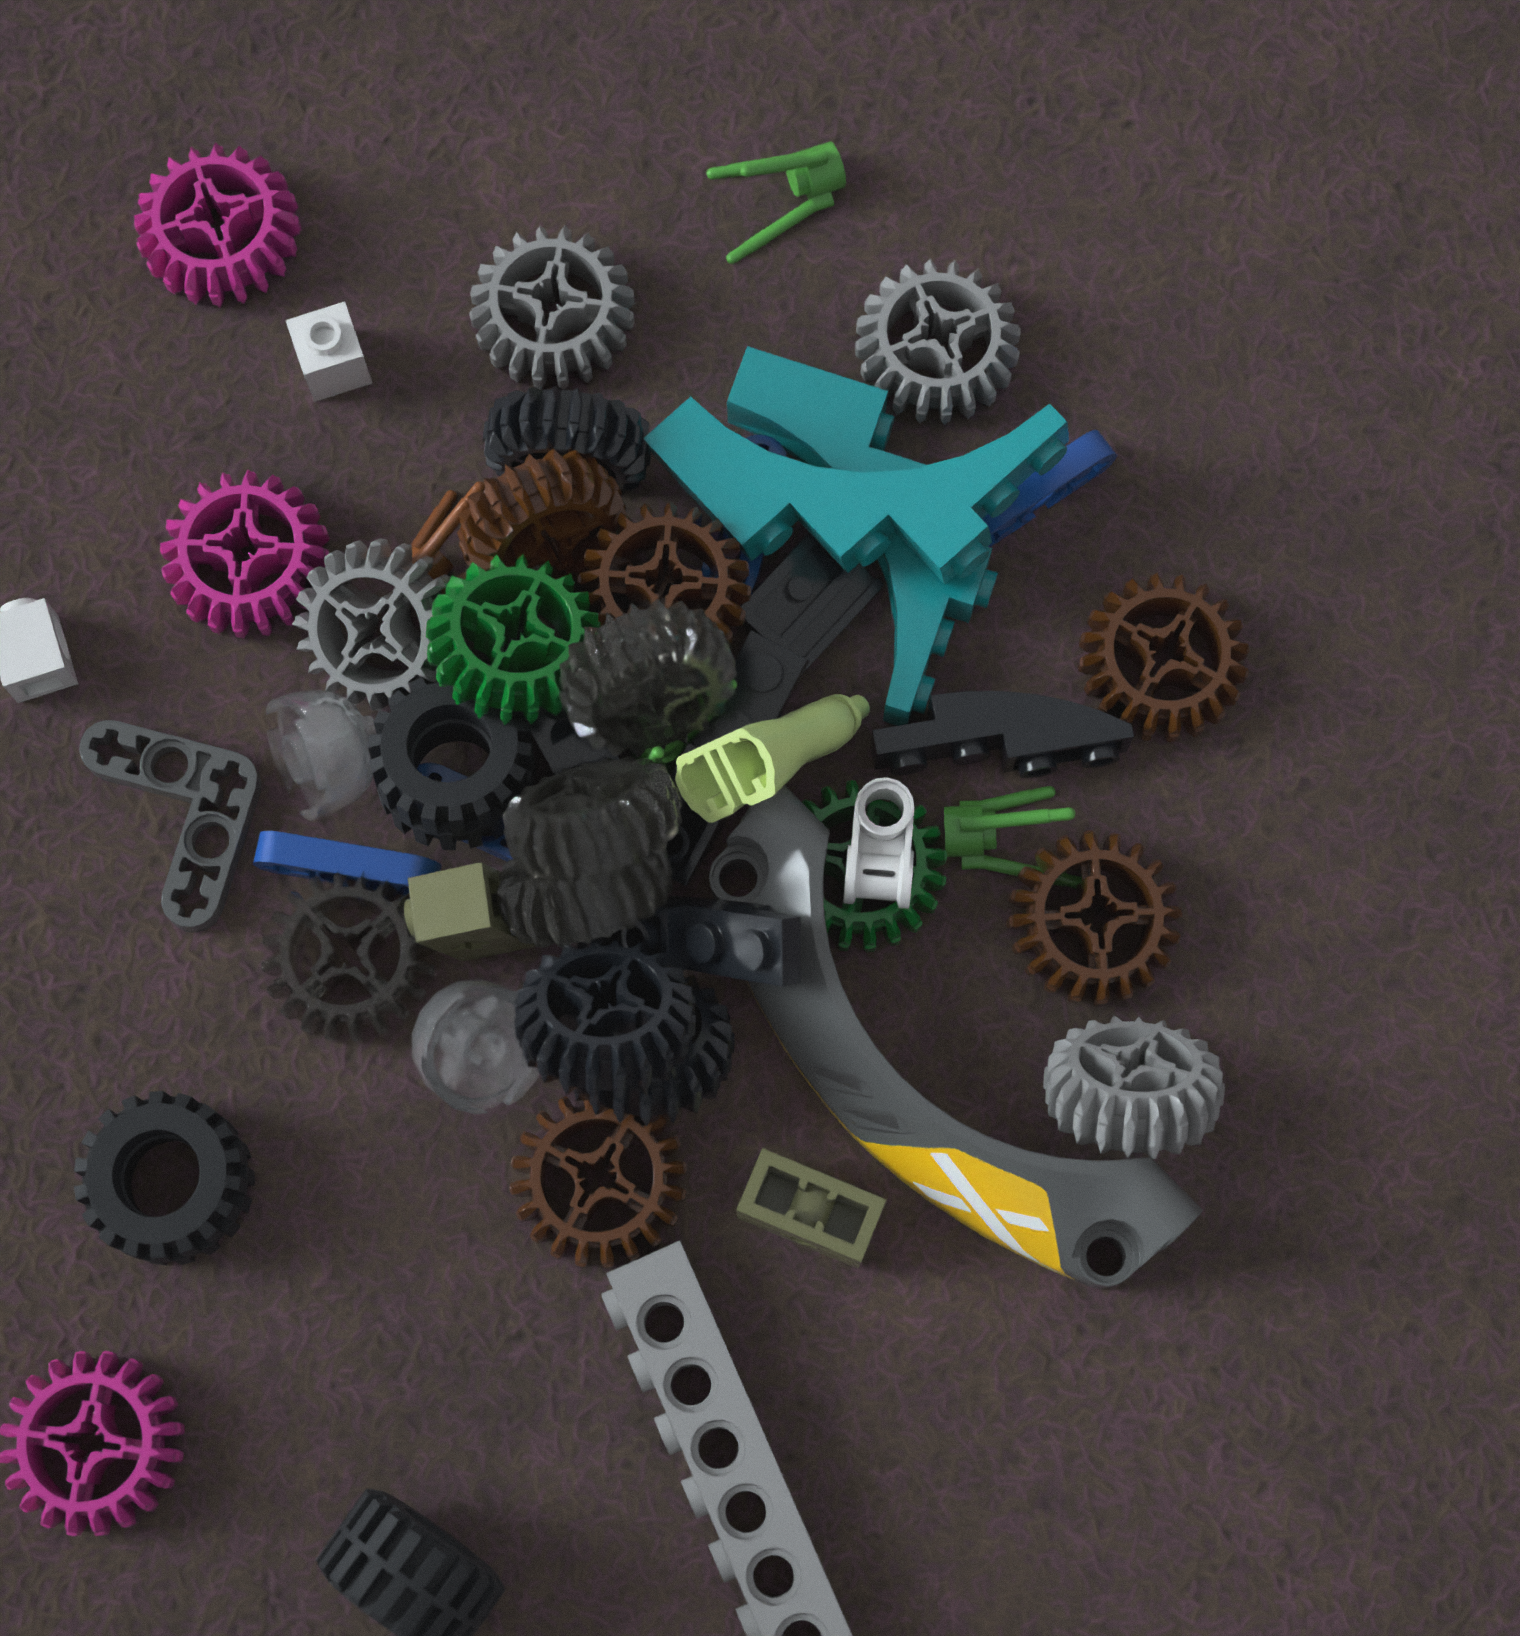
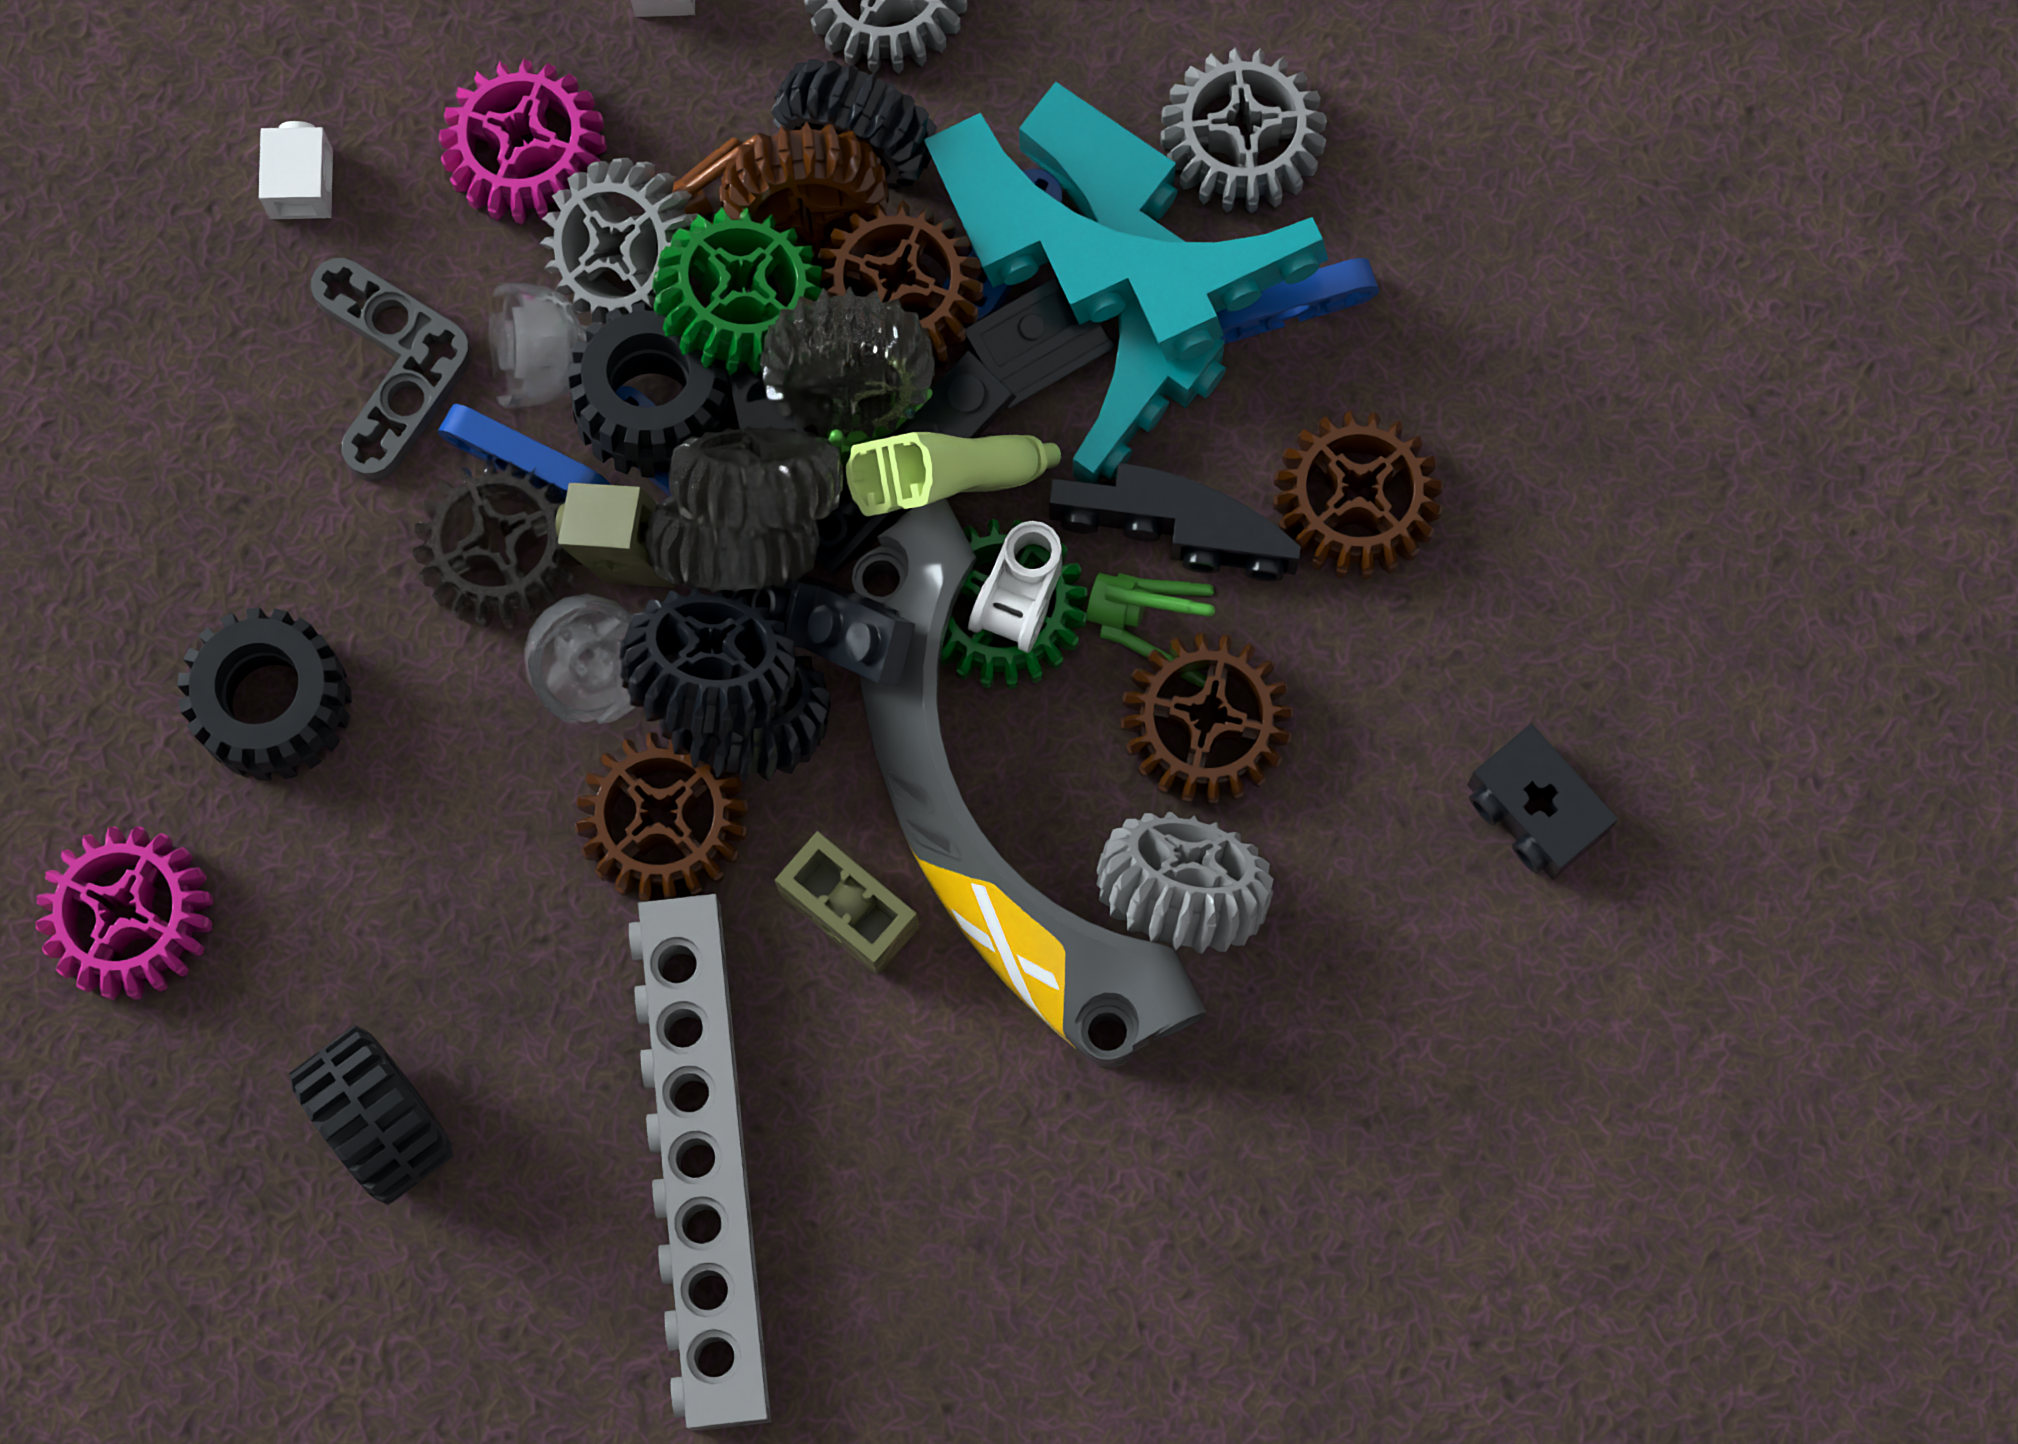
camera: 20 degrees right, 0 degrees up
(1470, 907) = (1533, 769): none -> black brick

